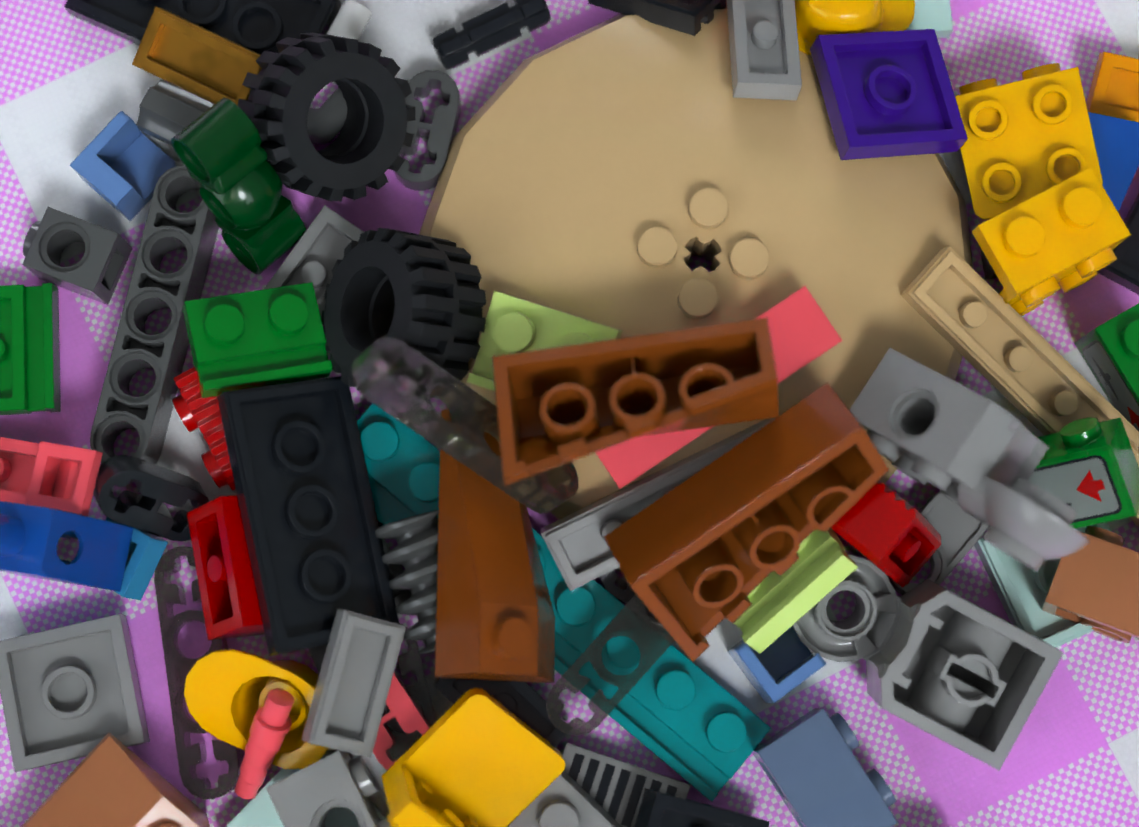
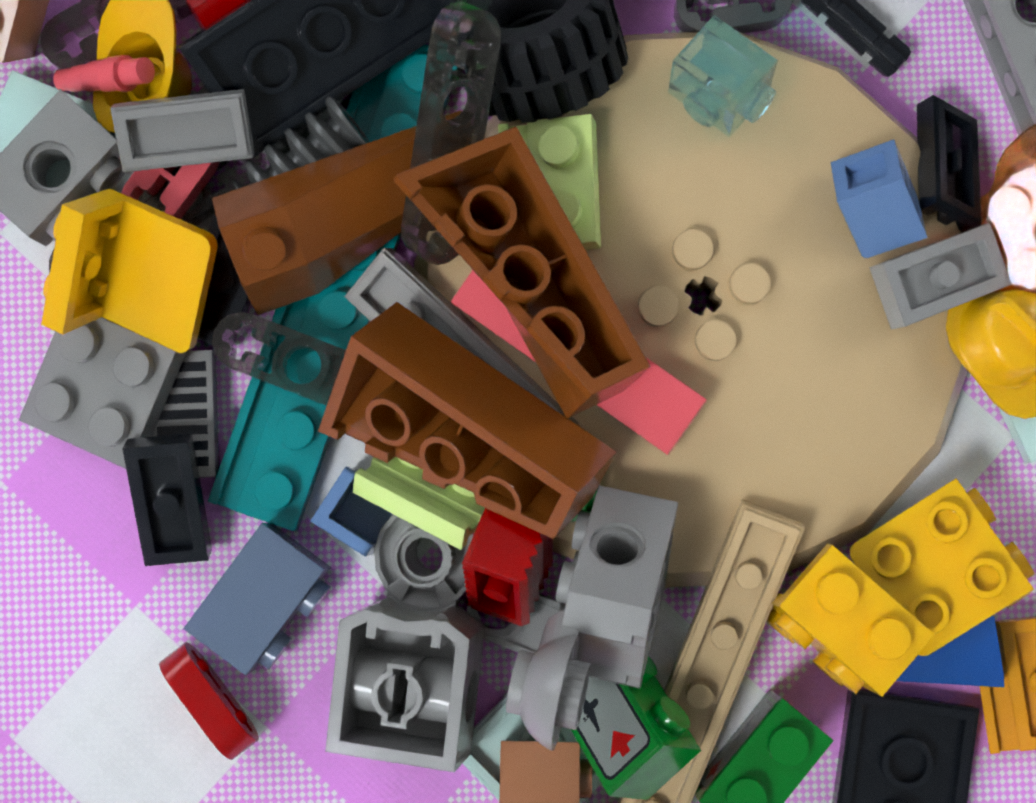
camera: 70 degrees right, 5 degrees up
(508, 159) = (723, 78): none -> clear light blue brick
(674, 65) = (878, 199): none -> medium blue panel
(887, 94) = (934, 416): dark purple plate -> none

